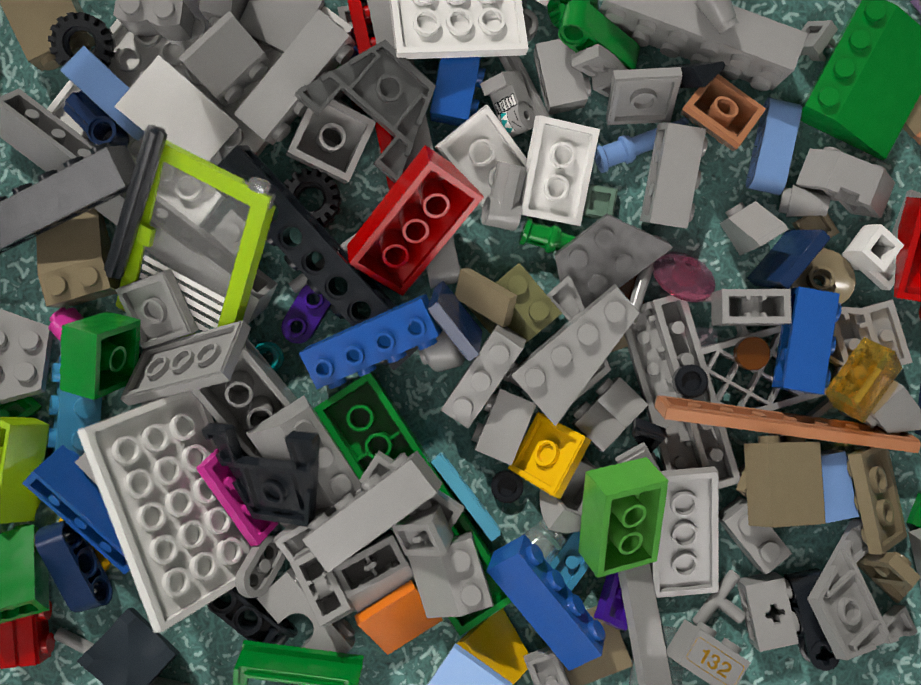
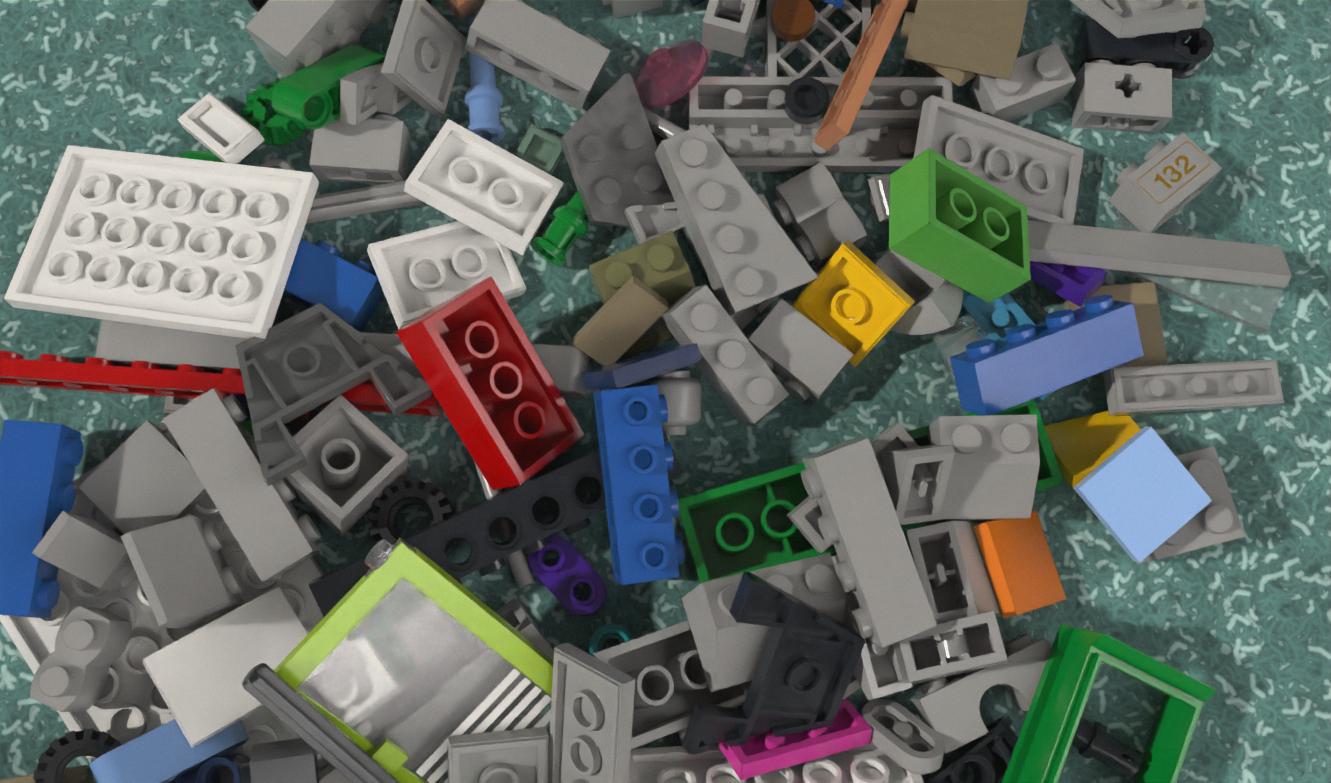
camera: 75 degrees left, 10 degrees down
(466, 496) = (907, 416): medium azure tile -> none
(503, 205) = (510, 265): light grey piece -> none
(506, 486) = (878, 375): black tile -> none
(510, 101) = (372, 219): light grey leg -> none
(648, 433) = (858, 171): black tile -> none
(719, 601) = (1095, 154): light grey piece -> none

